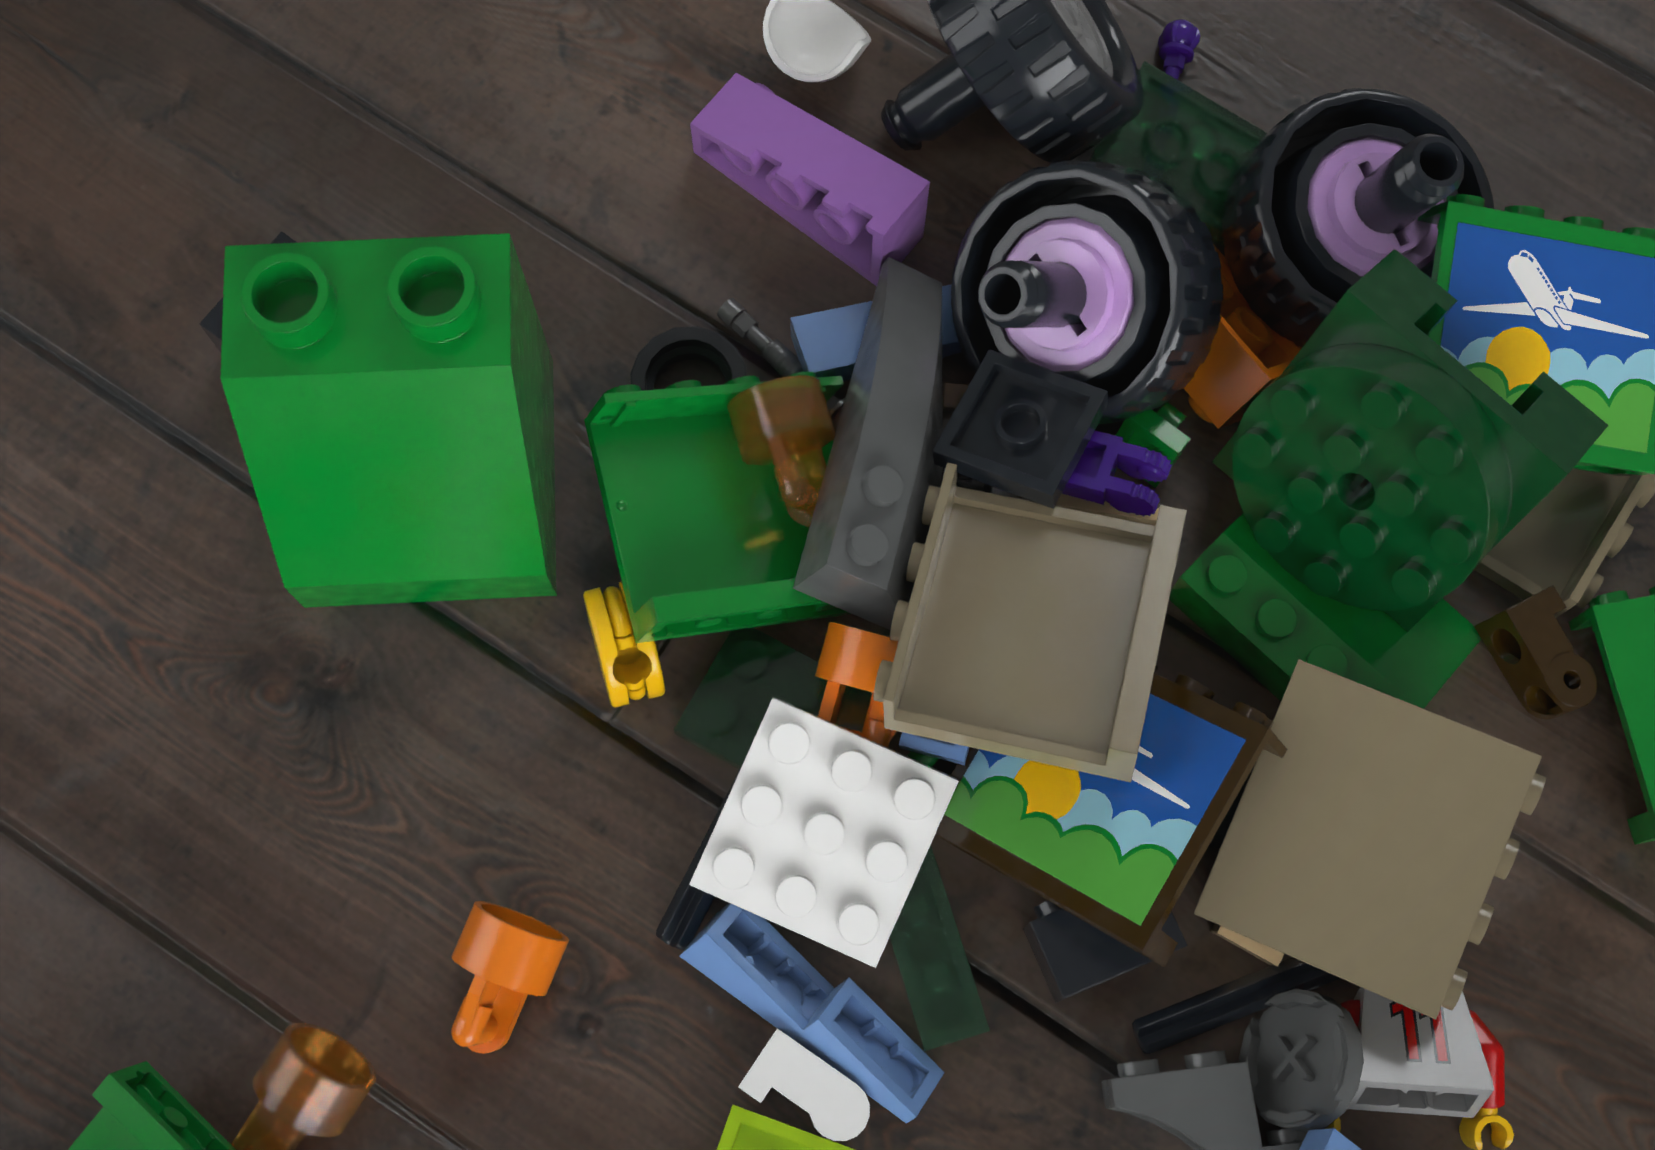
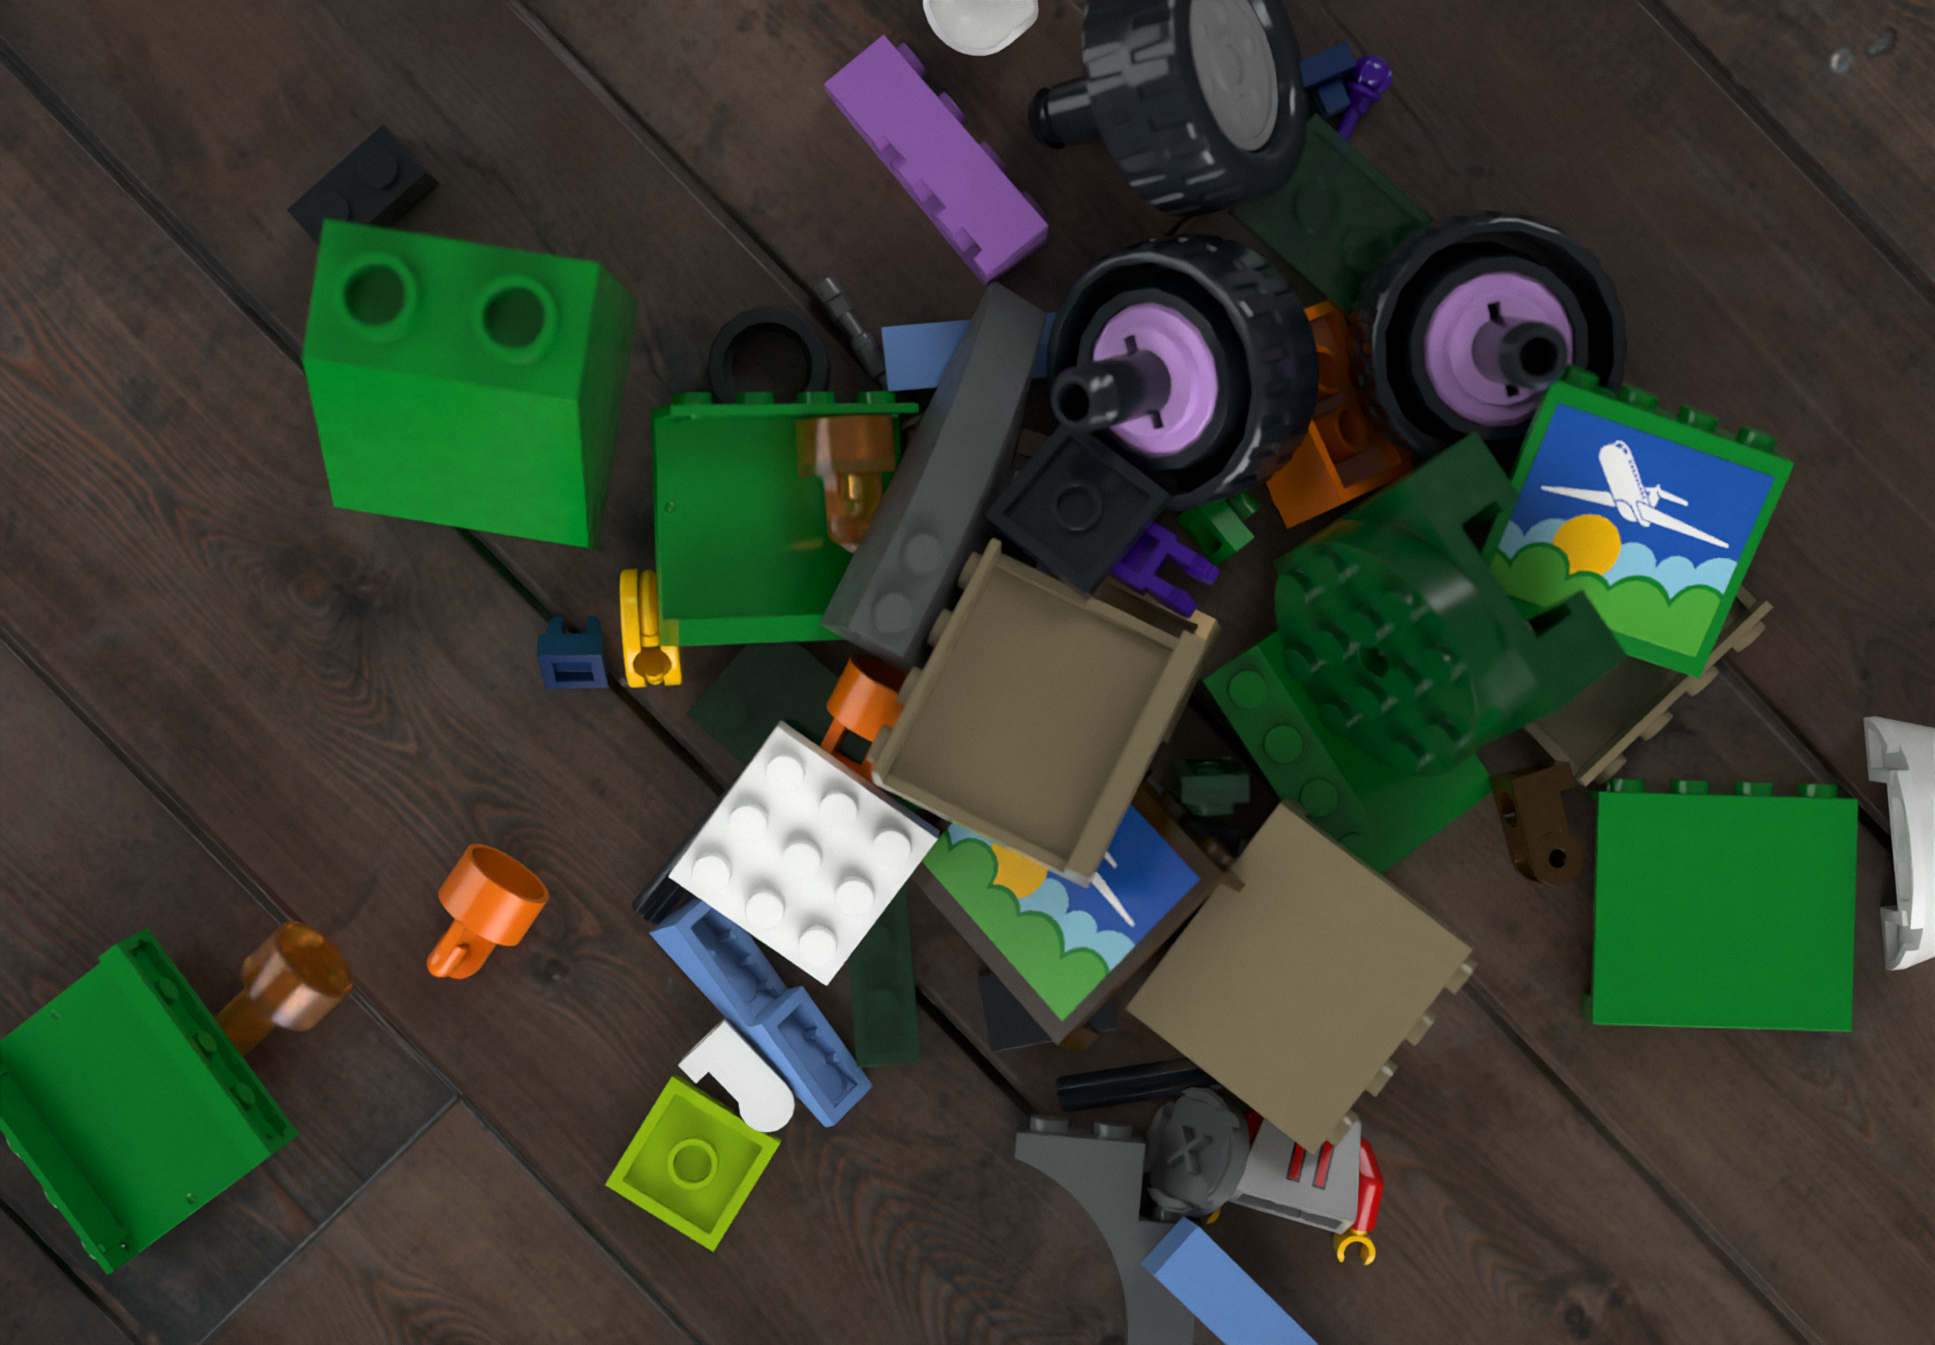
camera: 10 degrees right, 15 degrees up
(550, 696) = (573, 659): none -> dark blue tile
(1145, 34) = (1322, 78): none -> dark blue tile
(1224, 661) = (1210, 783): none -> clear green plate

